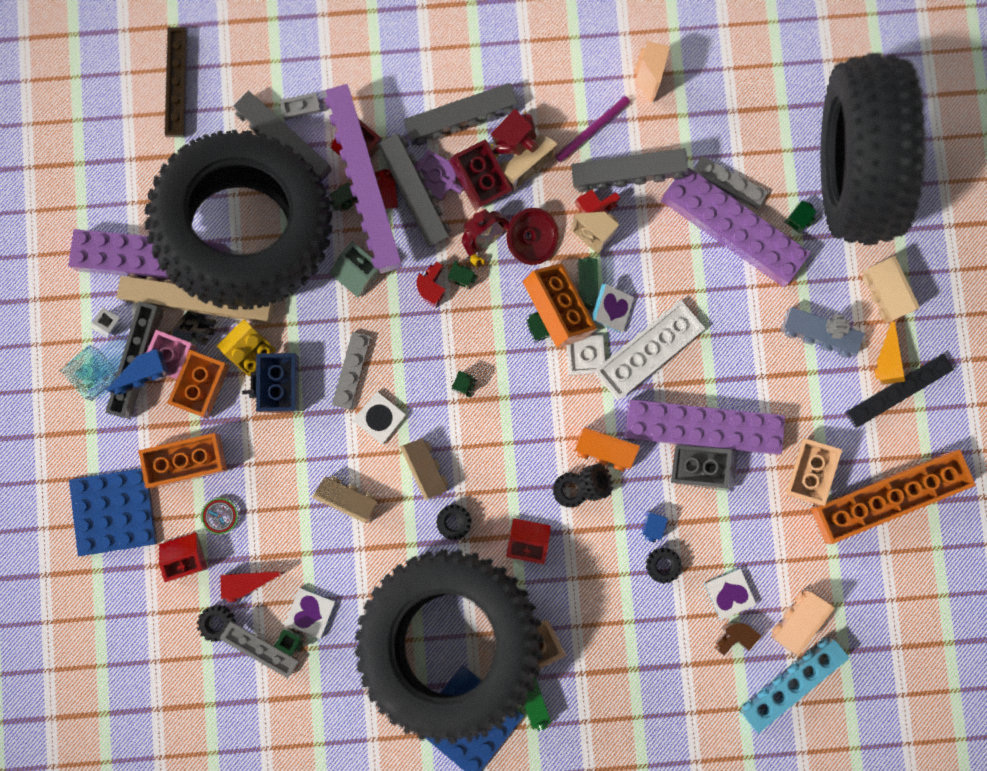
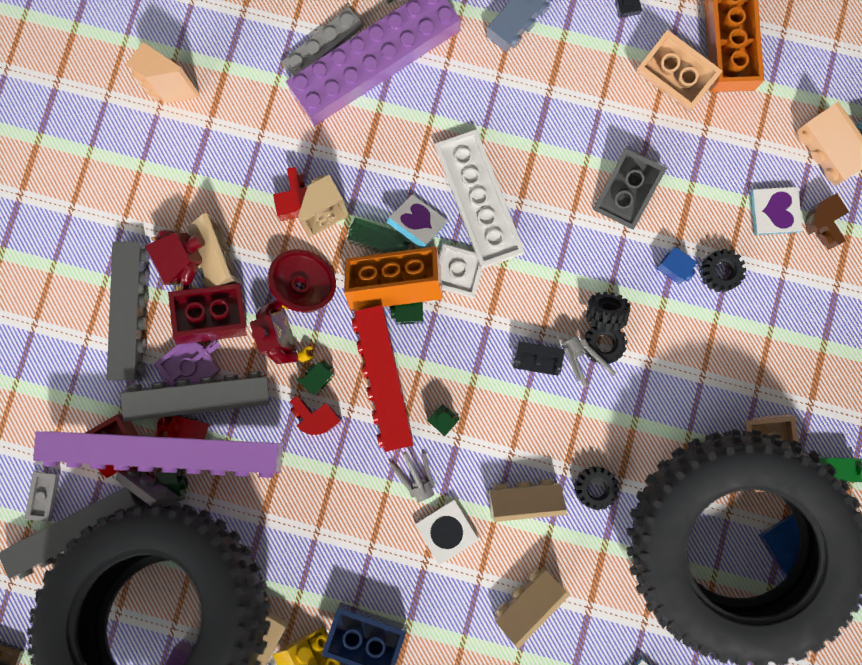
camera: 70 degrees left, 0 degrees up
(334, 178) = (146, 487): none -> dark grey plate
(351, 370) = (380, 545): light grey plate -> none
(354, 269) = (263, 500): sand green slope -> none
(405, 386) = (421, 489): none -> light grey plant
(479, 326) = (383, 377): none -> red brick
(528, 541) = (648, 411): red slope -> none
(538, 441) = (538, 358): none -> black hinge
(555, 466) = (574, 350): none -> light grey plant
(592, 129) = (203, 170): magenta piece -> none
(606, 449) = (575, 287): orange slope -> none
(630, 169) = (267, 142): dark grey brick -> none
(704, 427) = (586, 171): medium lavender brick -> none

